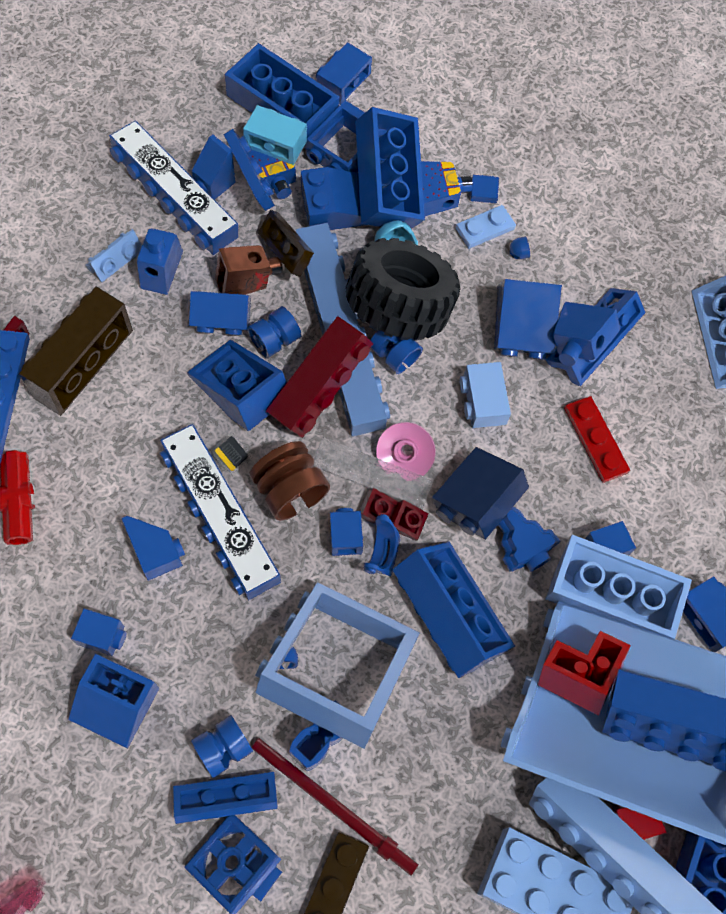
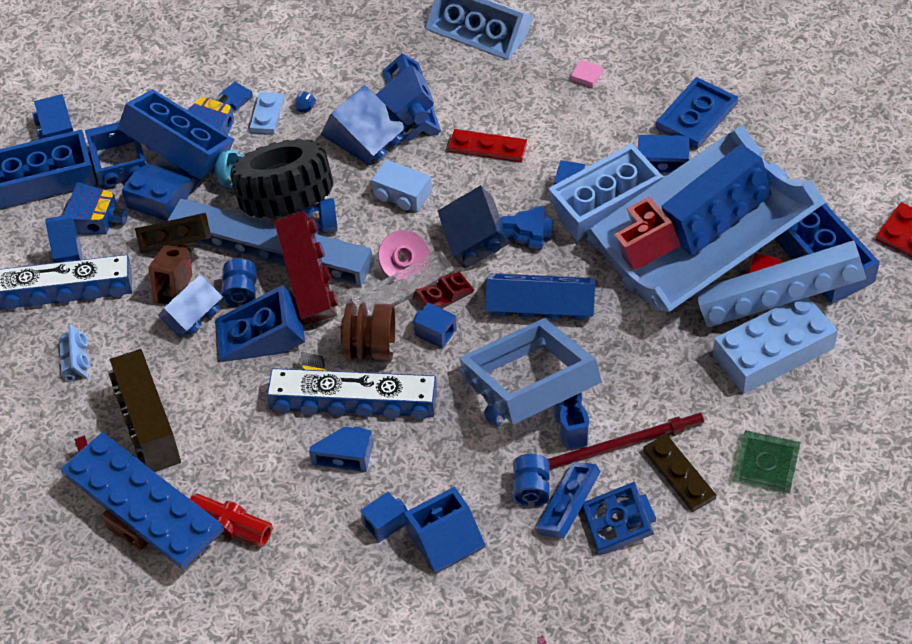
camera: 45 degrees left, 15 degrees down
(161, 253) = (104, 316): blue torso -> none
(250, 169) = (95, 217): blue plate -> none
(275, 134) = (78, 185): medium azure brick -> none
(385, 533) = (455, 303): blue helmet -> none

